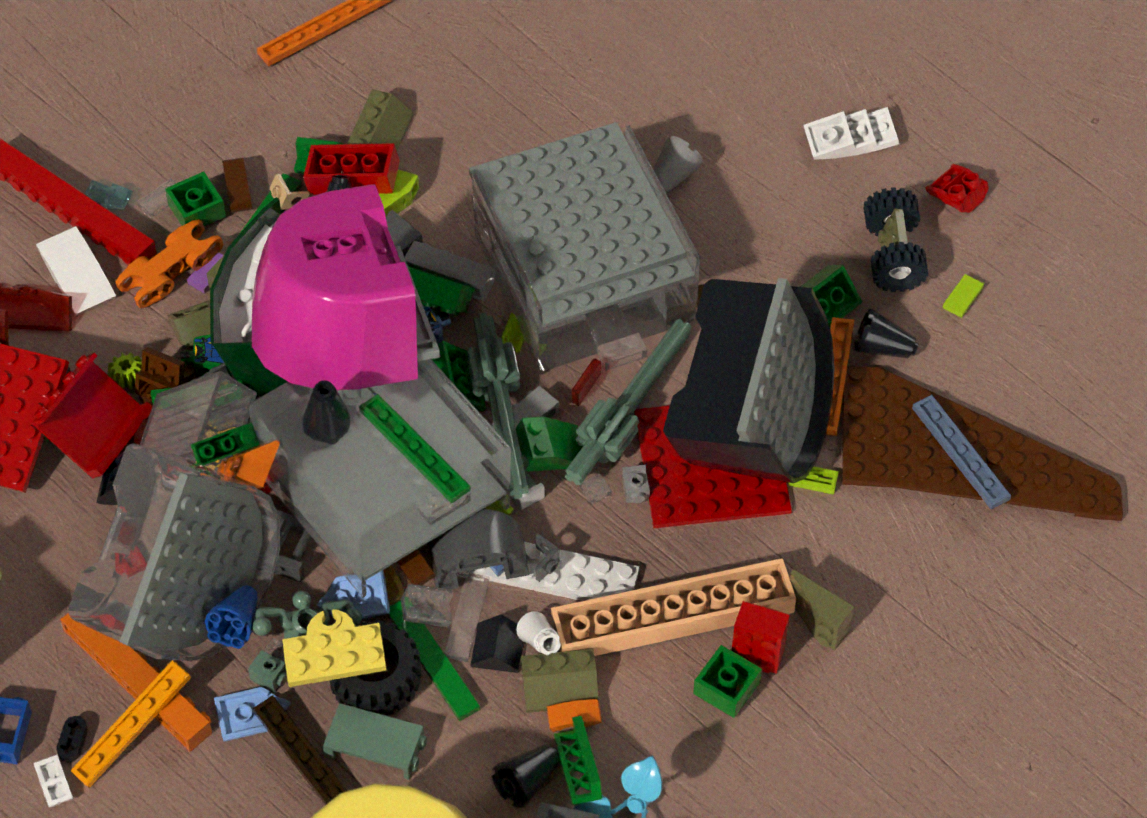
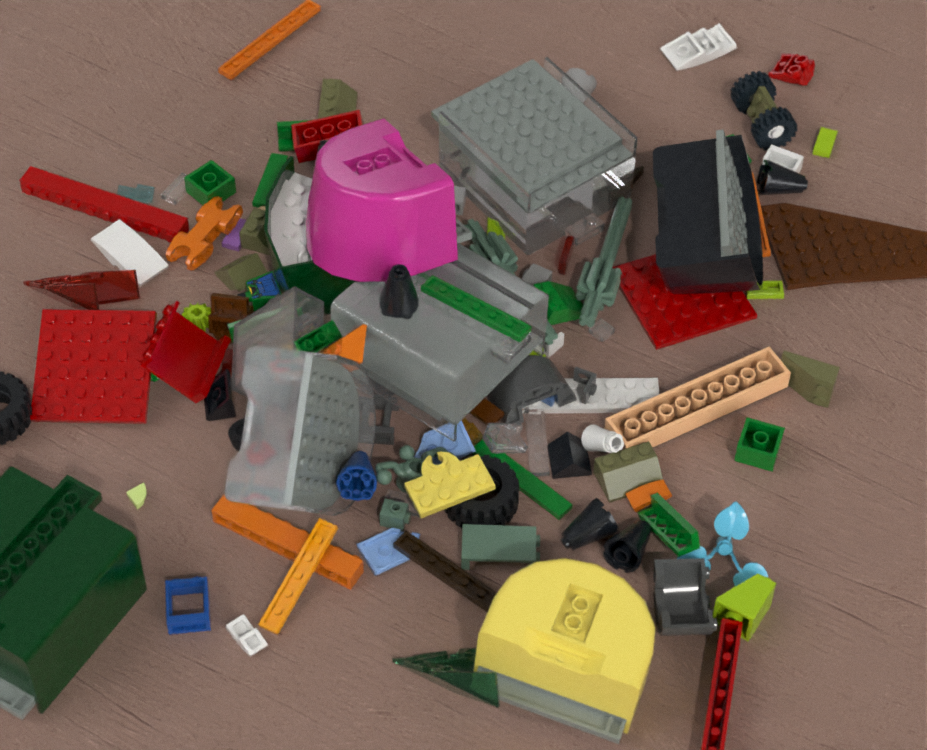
camera: 15 degrees left, 5 degrees down
(66, 737) = (246, 600): black beam -> none
(237, 185) = (238, 167): reddish brown beam -> none
(279, 189) = (275, 163): tan bracket -> none
(486, 740) = (589, 526): none -> black cone
(635, 484) = (632, 319): light grey brick -> none
(760, 636) = (776, 402): red brick -> none
(899, 310) = (784, 158): none -> white panel
(961, 452) = (869, 247): sand blue tile -> none

